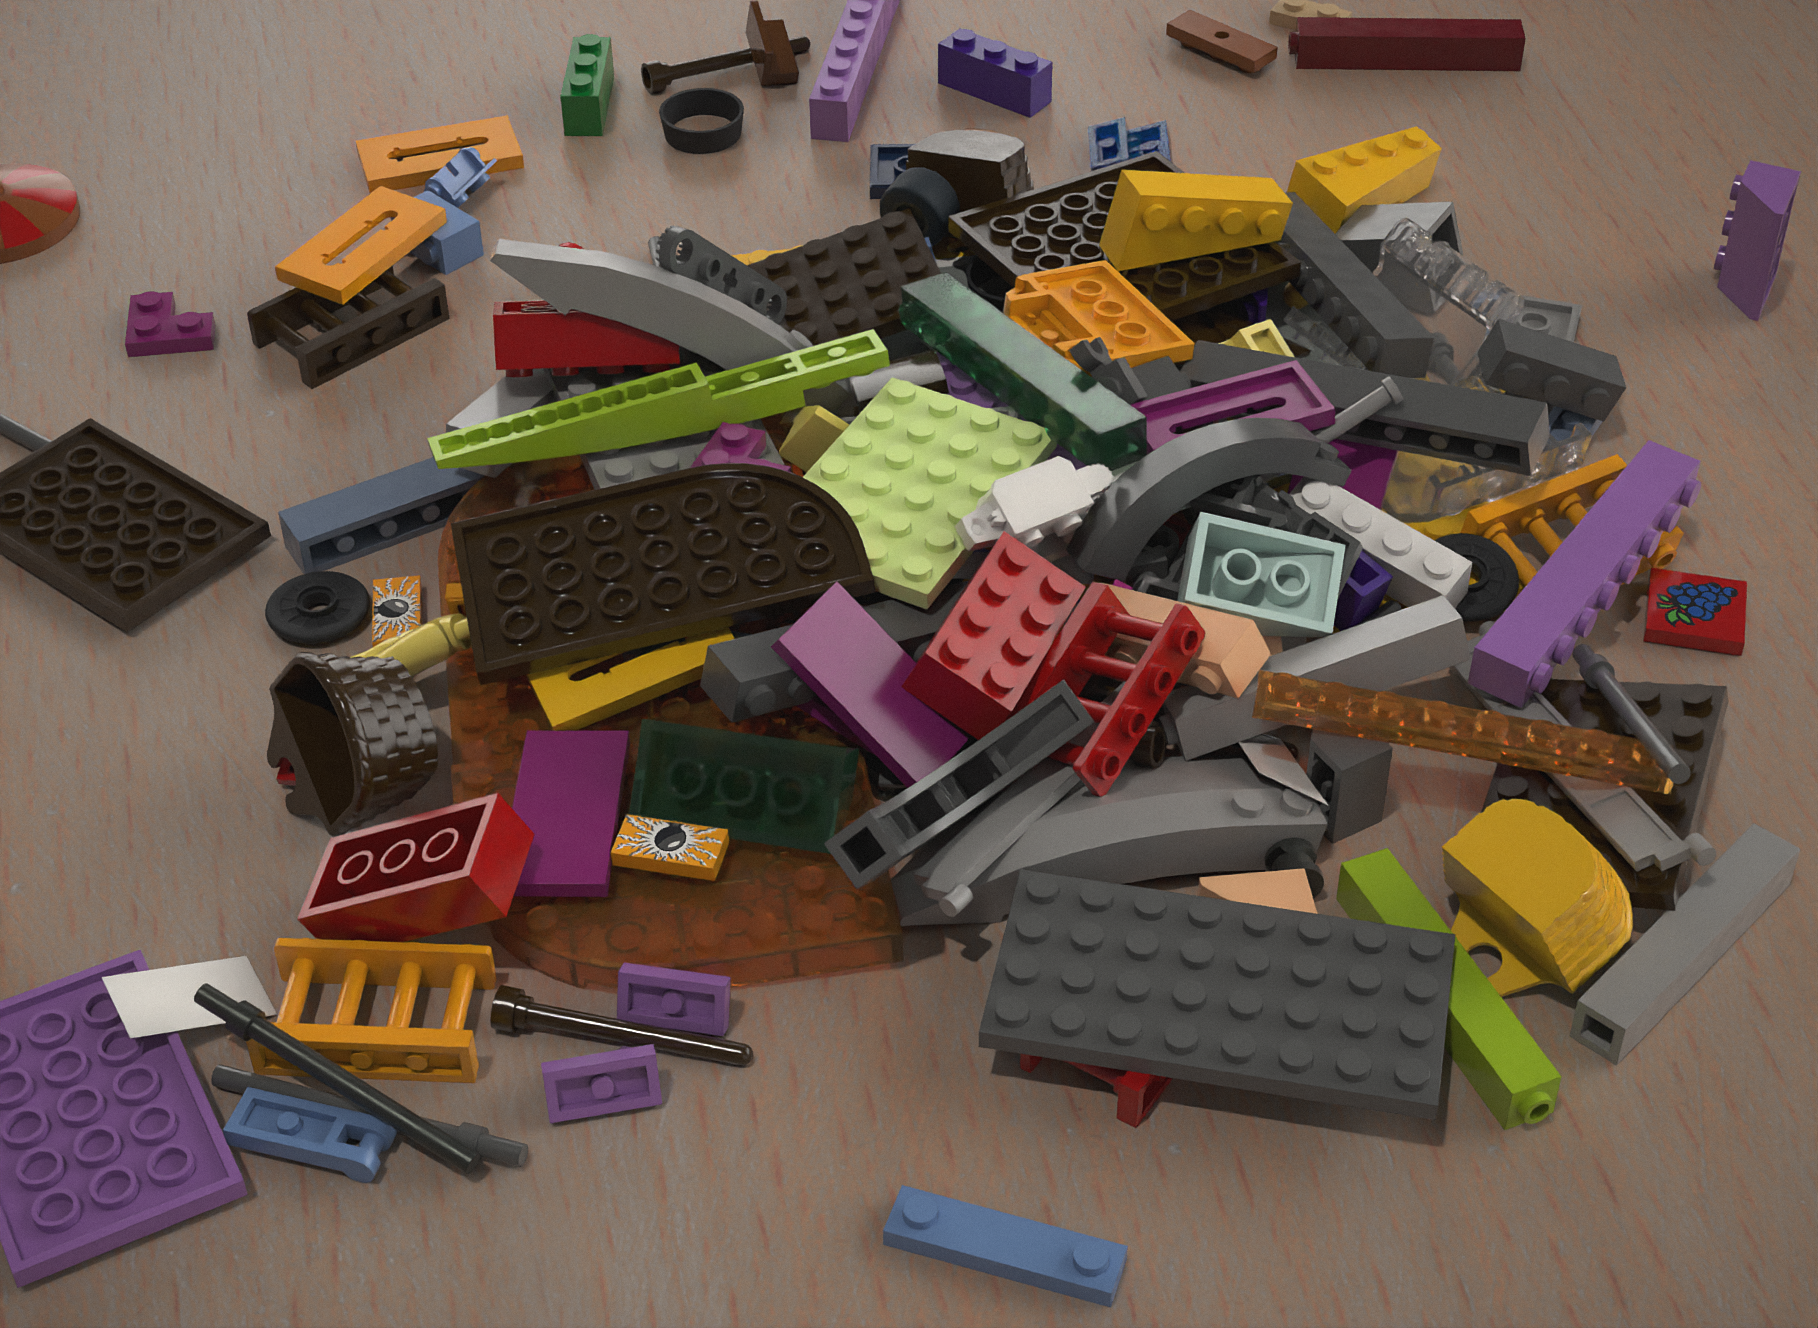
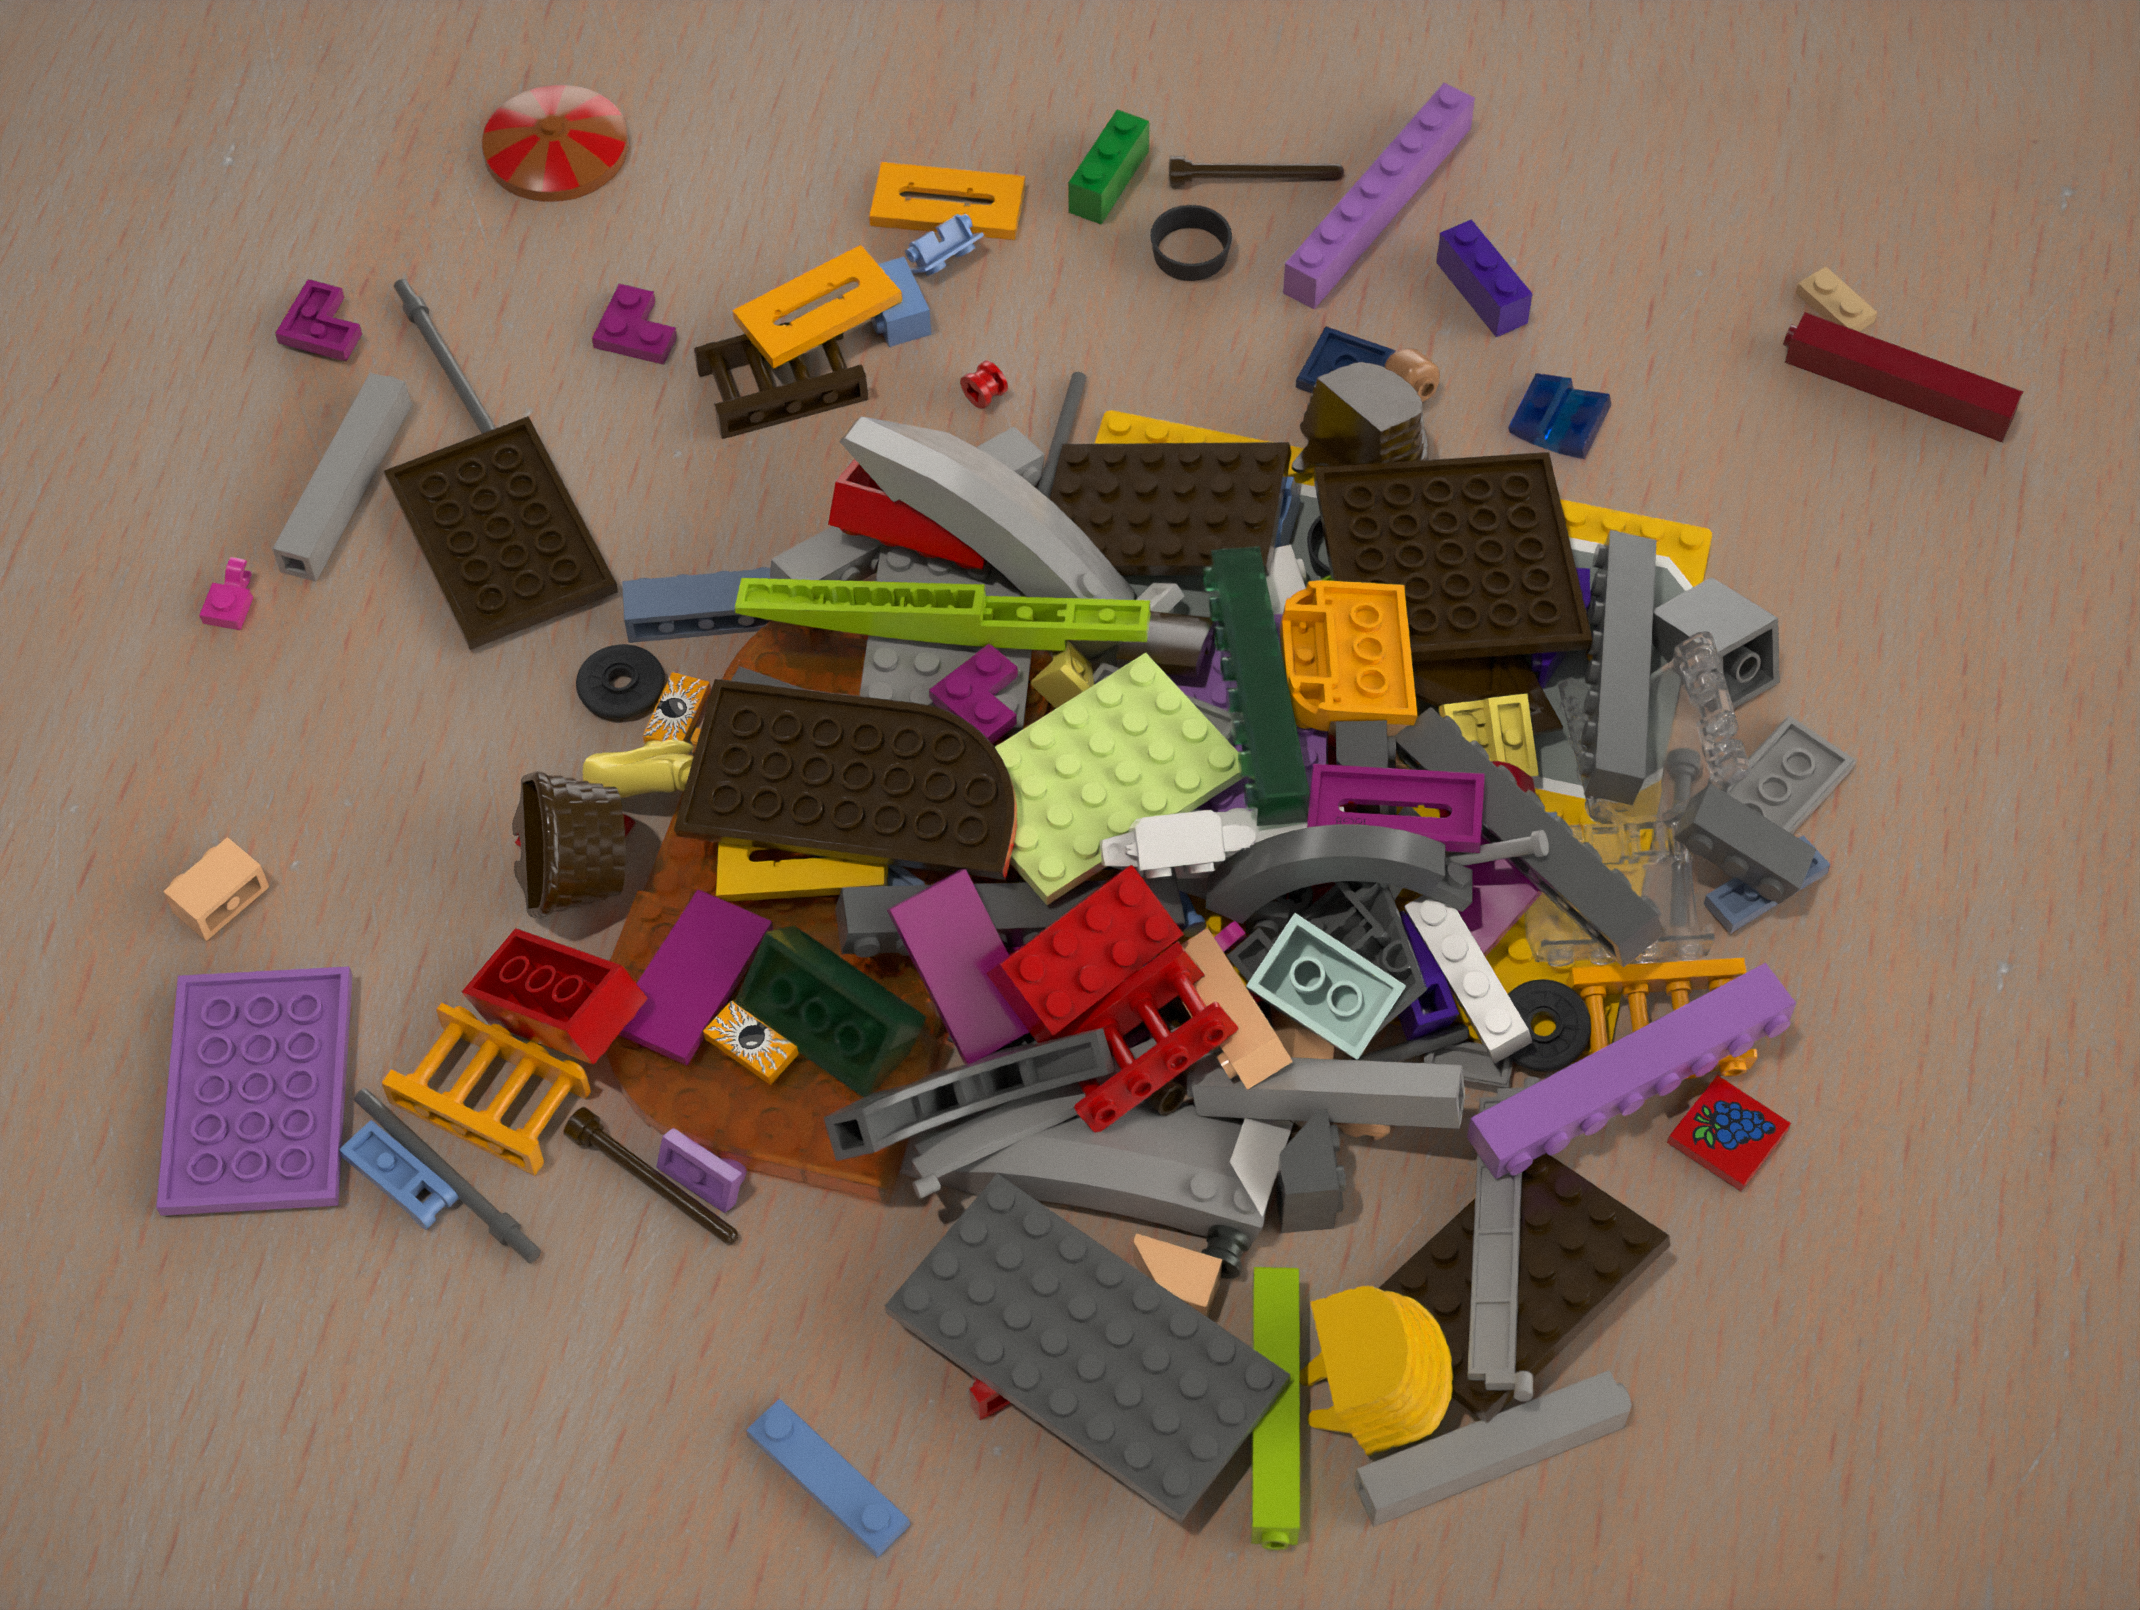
camera: 25 degrees right, 15 degrees up
(164, 997) = (366, 1021): white sticker -> none
(250, 1023) = (385, 1074): pearl dark grey bar -> none
(601, 1083) = (614, 1221): medium lavender tile -> none
(709, 264) = (1041, 485): dark grey piece -> none
(770, 48) = (1296, 176): reddish brown panel -> none
(928, 198) = (1310, 435): black wheel -> none
(1114, 375) = (1315, 734): dark grey plate -> none
(1189, 215) = (1512, 560): yellow wedge -> none
(1221, 41) = (1726, 308): dark orange tile -> none
(1365, 173) = (1739, 541): yellow wedge -> none
(1457, 730) = (1406, 1198): clear orange plate -> none
(1601, 675) = (1572, 1178): dark grey bar -> none
(1755, 234) = (2051, 757): medium lavender slope -> none

